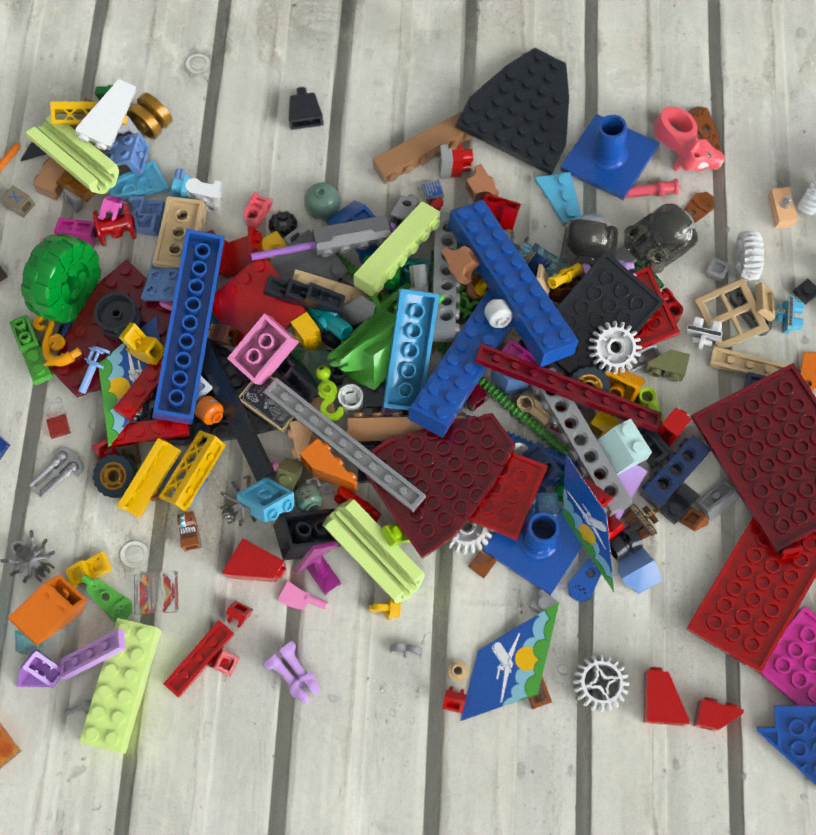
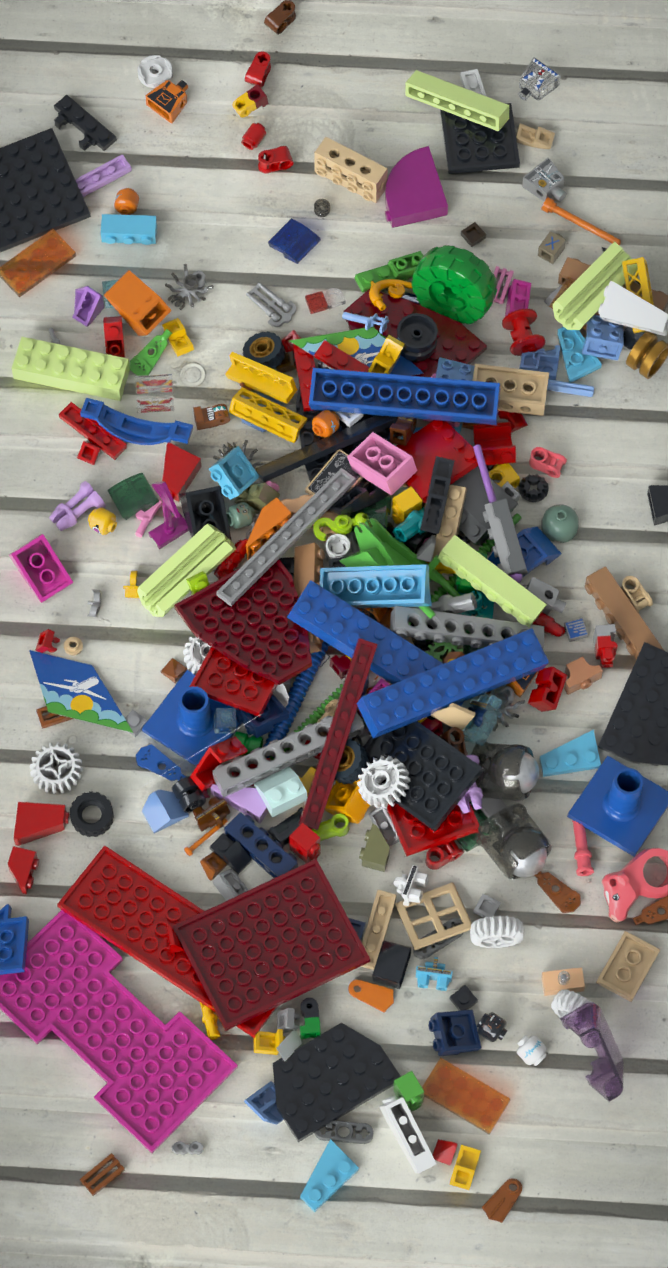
camera: 90 degrees right, 5 degrees down
(76, 637) = (114, 336): none -> red slope
(92, 654) = (96, 340): lavender plate -> none
(112, 205) = (542, 326): dark pink hinge -> none
(195, 189) = (558, 403): white hips -> none
(201, 610) = (135, 429): none -> blue piece
(238, 611) = (133, 460): red tile -> none
(281, 611) = (133, 495): none -> clear green slope
(312, 643) = (102, 521): none -> yellow head
(365, 710) = (41, 568): none -> dark pink slope
(397, 136) = (638, 595): none -> tan piece
(461, 263) = (471, 635): nougat brick -> none
(498, 313) = (413, 665): white head -> none
(565, 275) = (462, 737): yellow pin -> none
(657, 630) = (84, 801): none -> black tyre
(680, 543) = (189, 850): none -> orange piece
(762, 155) = (628, 966): none -> tan plate
(765, 301) = (446, 948): tan tile -> none
(784, 348) = (391, 964): none -> black piece

